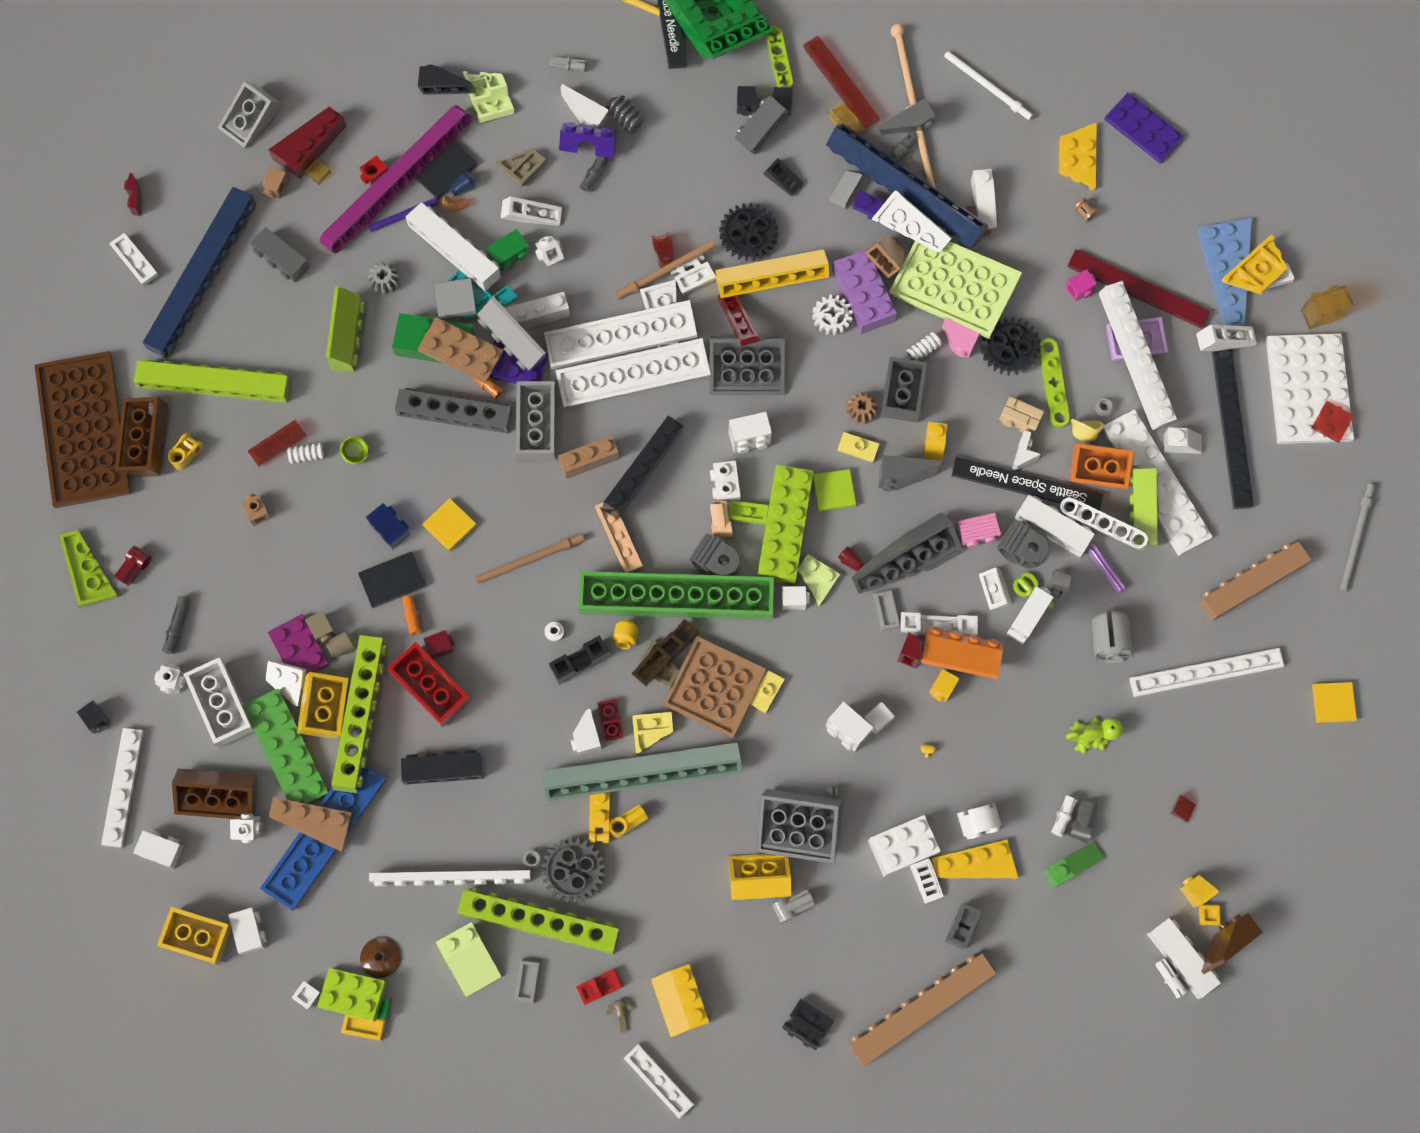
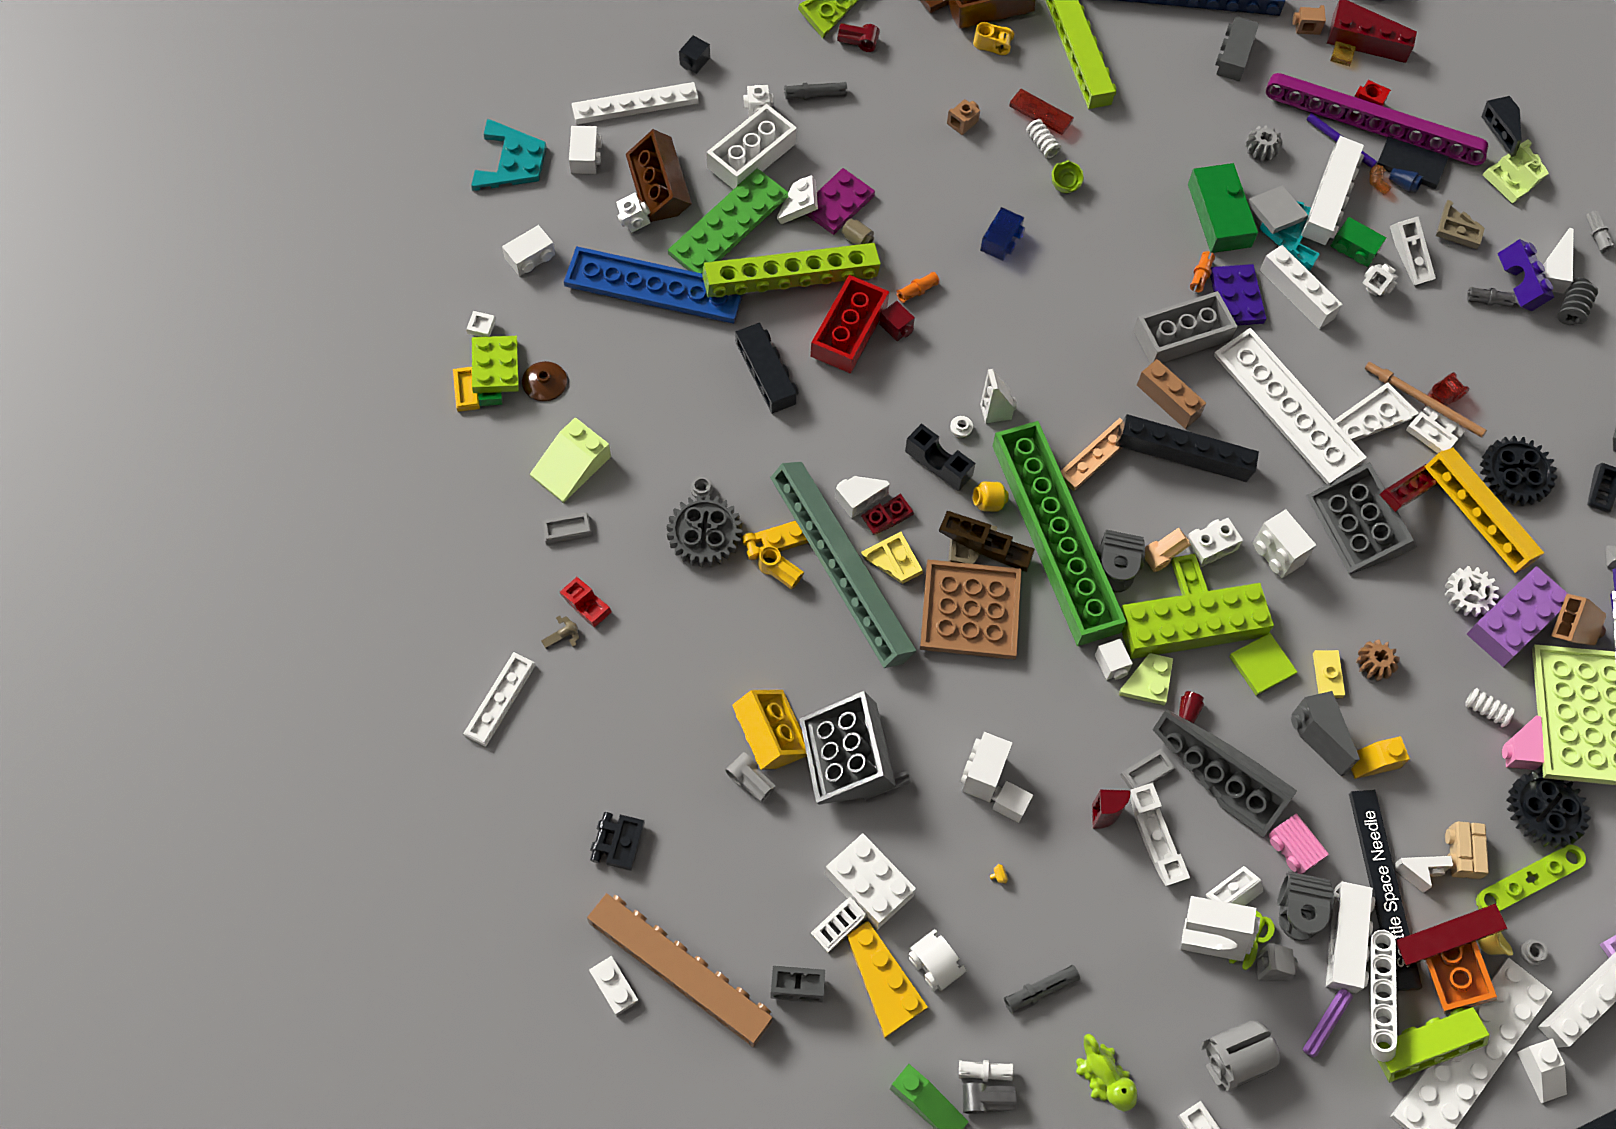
camera: 70 degrees right, 10 degrees down
(141, 909) = (519, 161): none -> teal wing
(195, 936) = (506, 205): yellow brick -> none
(318, 822) = (662, 271): medium nougat wing -> none
(320, 627) = (868, 209): dark tan brick -> none
(322, 705) = (786, 231): yellow brick -> none
(344, 330) = (1189, 123): lime slope -> none
(391, 579) = (947, 258): black tile -> none
(408, 396) = (1155, 250): dark grey brick -> none
(442, 878) = (654, 422): white plate -> none
(449, 524) = (1031, 290): yellow tile -> none
(460, 350) = (1223, 228): medium nougat plate -> none
(468, 909) = (636, 591): lime brick -> none
(511, 334) = (1266, 265): light grey slope -> none
(547, 595) = (996, 399): none -> white slope
(564, 544) = (1062, 405): medium nougat bar -> none
(620, 334) = (1327, 380): white plate -> none
(680, 1000) = (599, 691): yellow slope -> none
(766, 691) = (990, 668): light yellow plate -> none
(903, 389) = (1425, 697): dark grey brick -> none
(916, 1062) = (613, 985): none -> white plate
(943, 686) = (1085, 865): yellow brick -> none
(962, 652) = (1135, 870): orange slope -> none
(1021, 762) = (1048, 985): none -> dark grey pin
(1082, 460) = (1451, 934): none -> dark red tile

